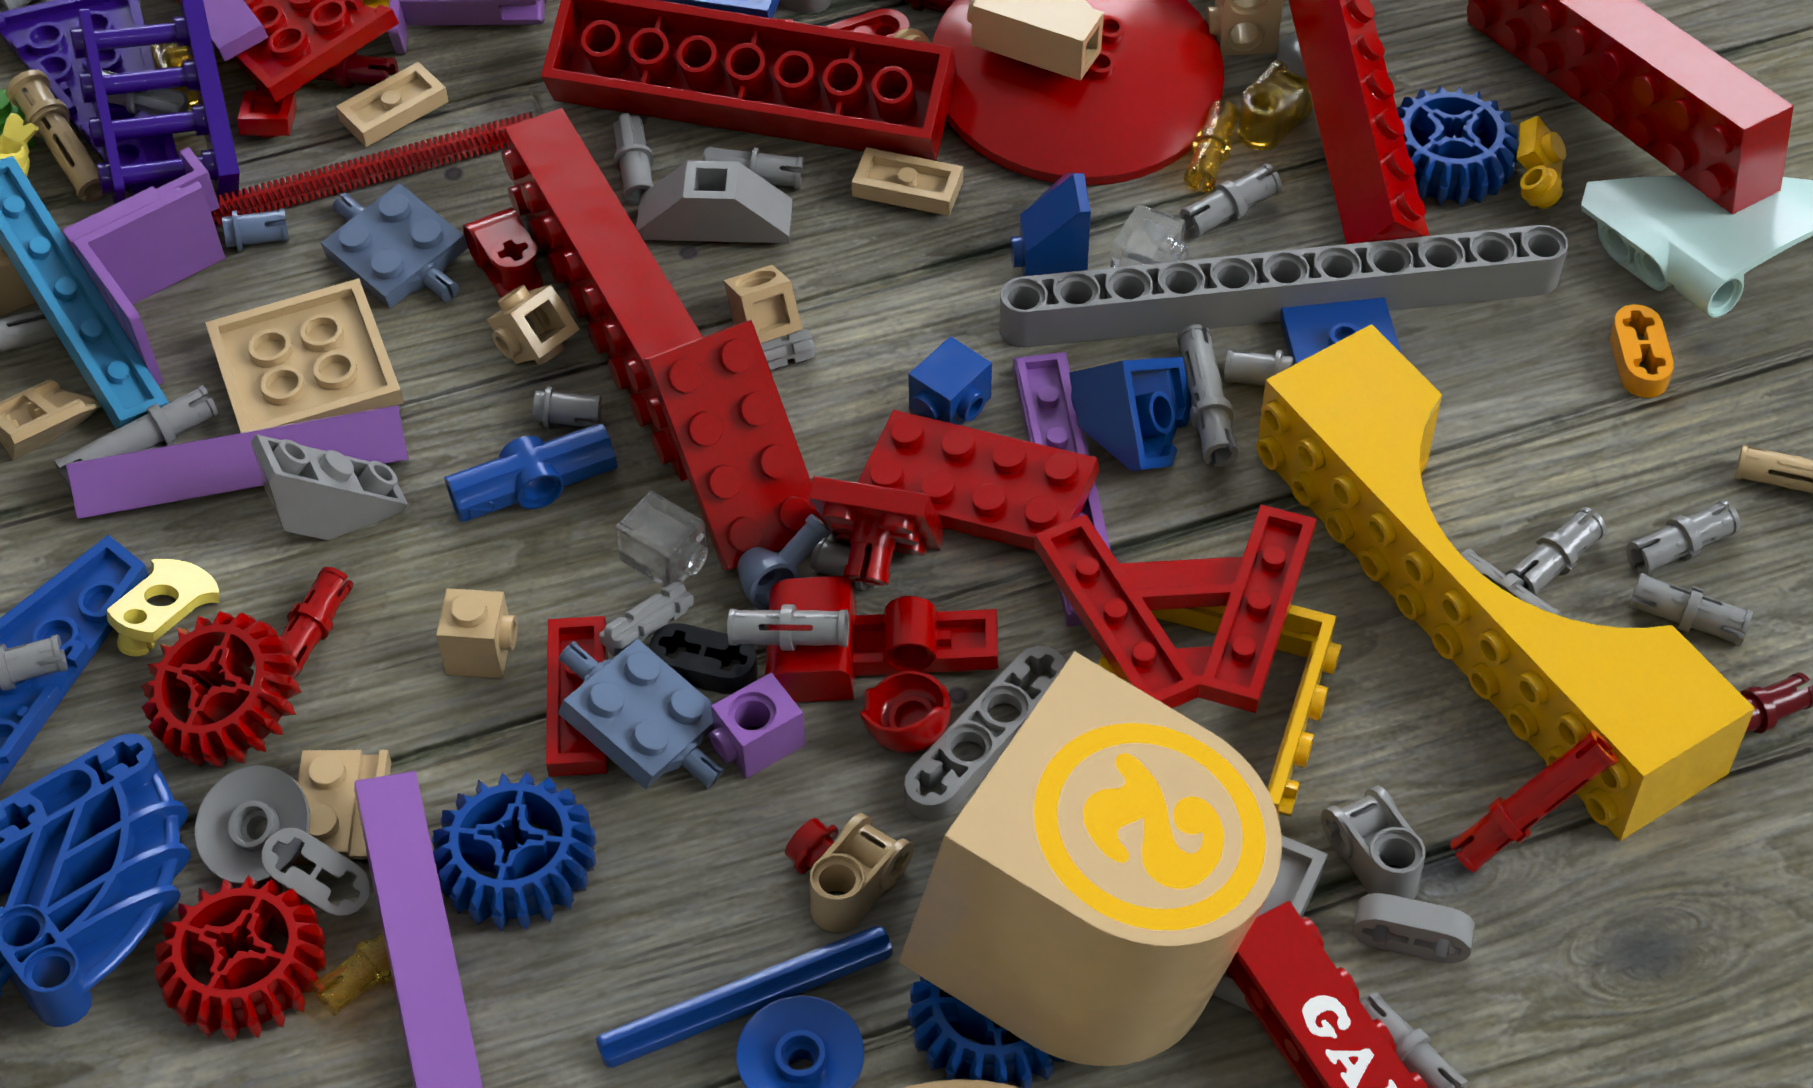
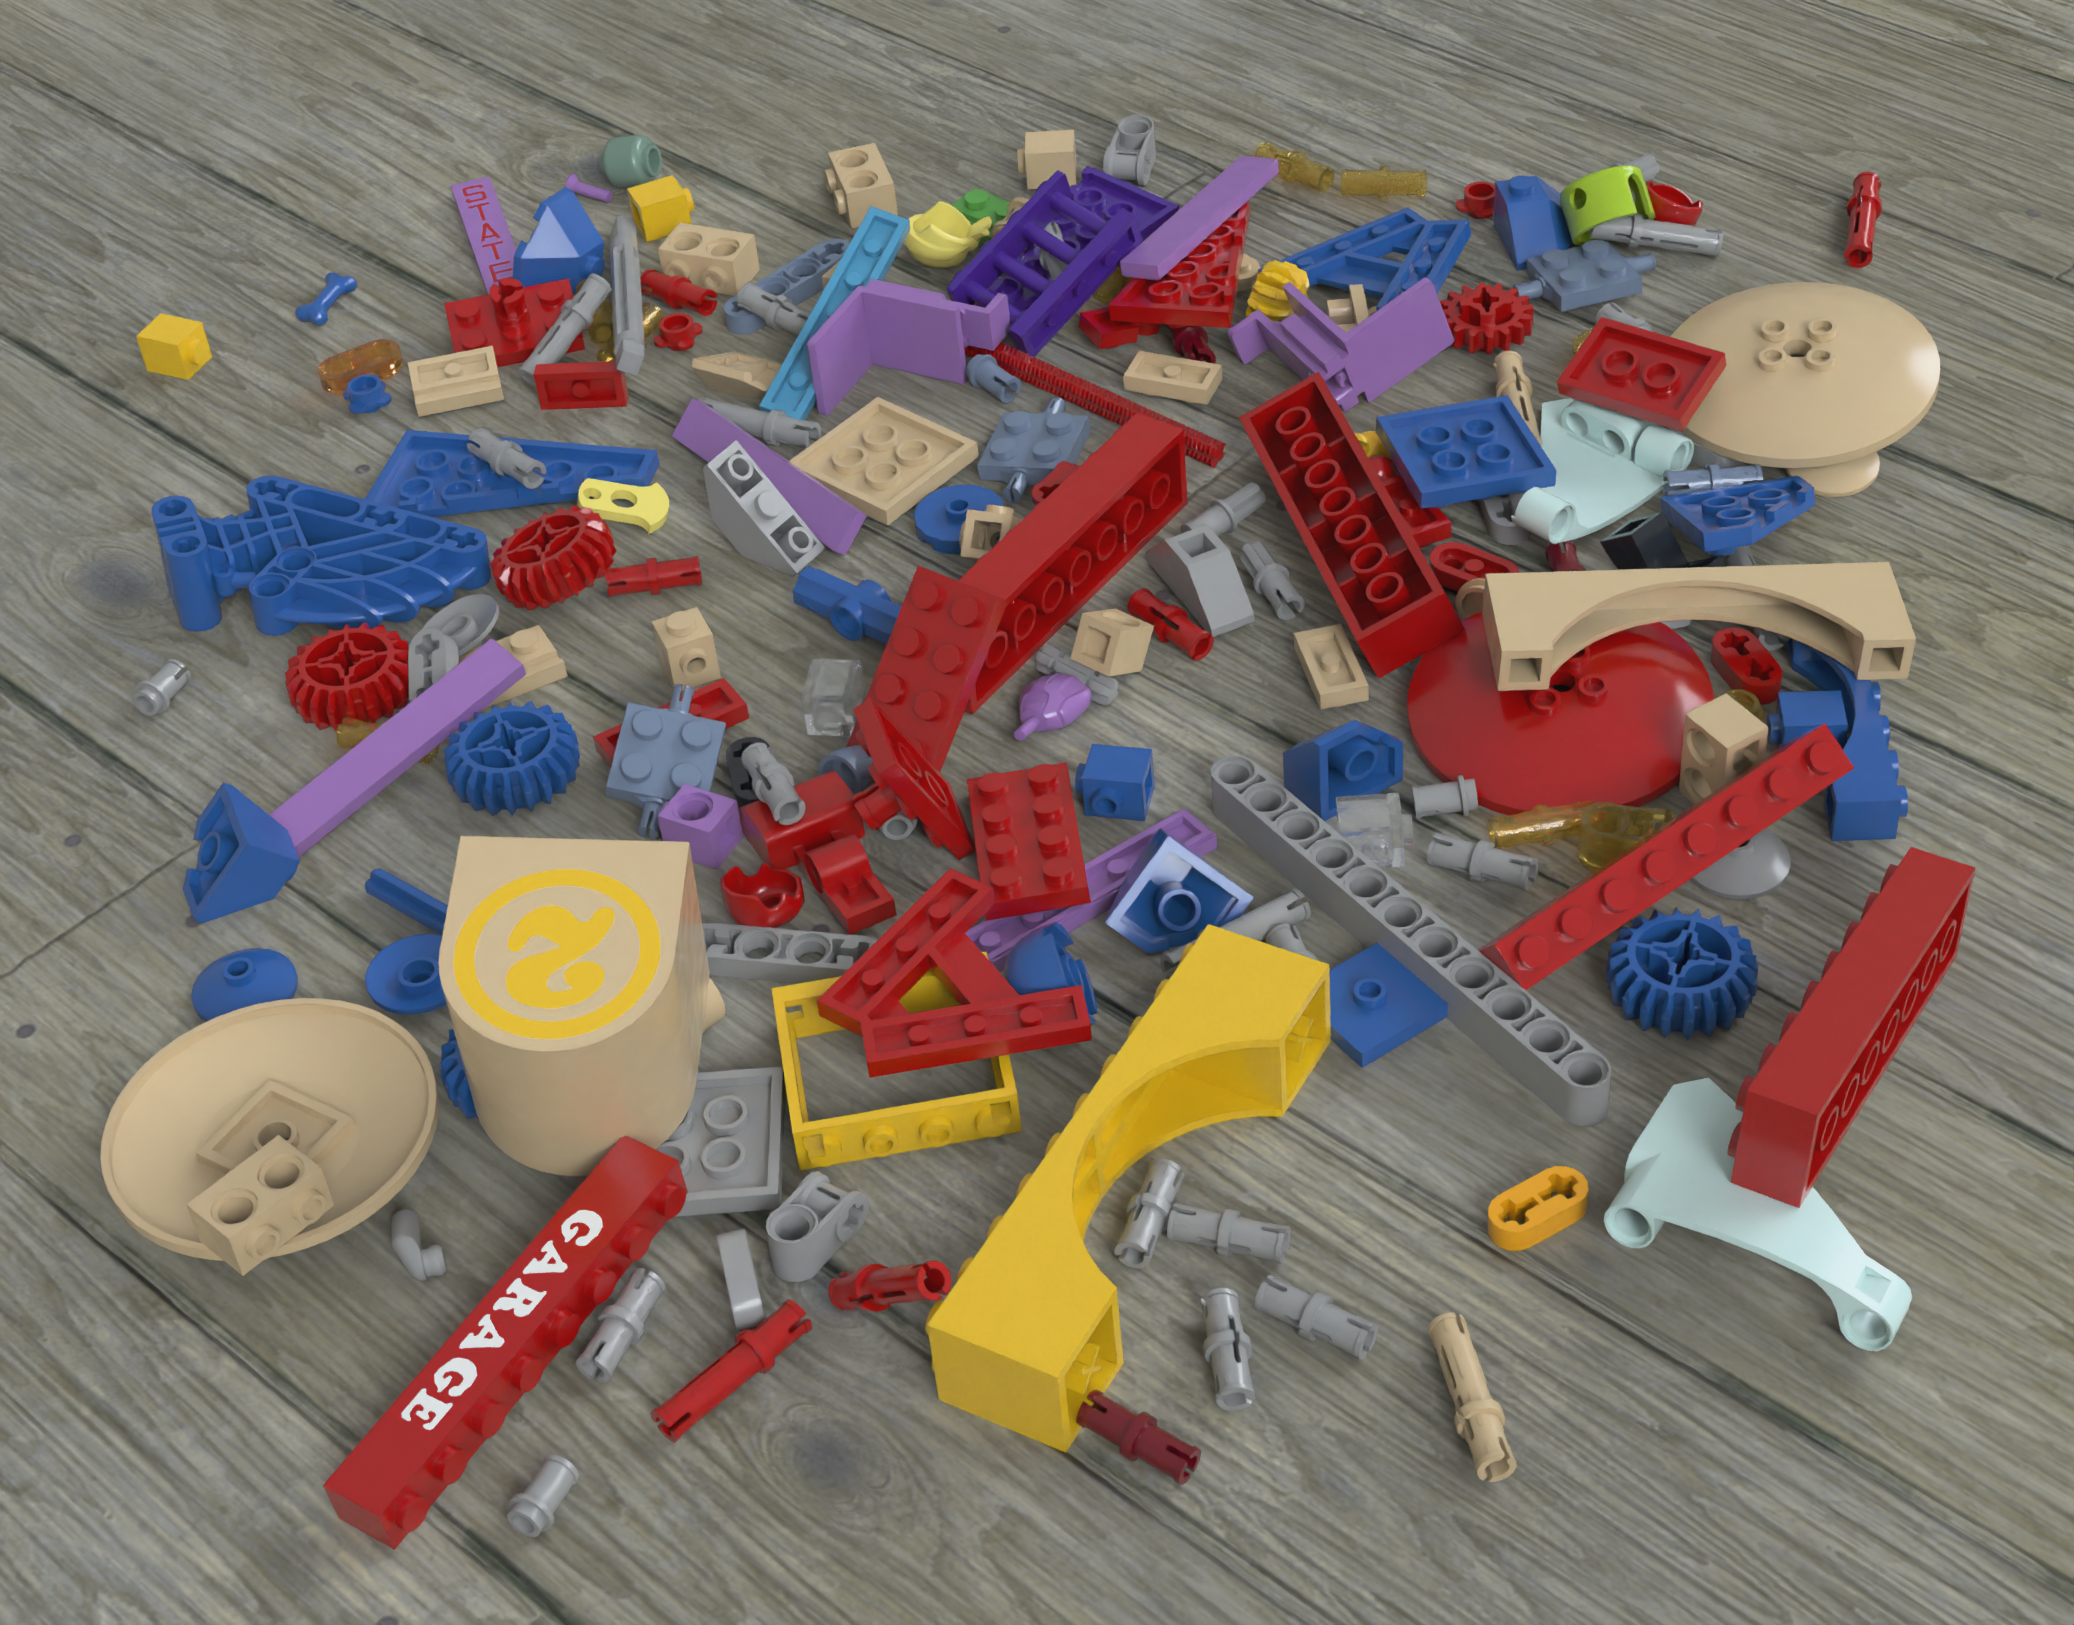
camera: 65 degrees right, 10 degrees down
(446, 345) = (944, 511): none -> blue plate
(646, 618) = (762, 725): light grey axle -> none
(719, 264) = (1188, 637): none -> red pin
(798, 388) = (1051, 703): none -> medium lavender piece
(1139, 179) = (1445, 798): none -> light grey pin
(1192, 528) = (1043, 964): none -> blue cylinder
(1511, 958) = (751, 1354): none -> red pin
(1542, 156) = (1725, 1040): yellow plate -> none

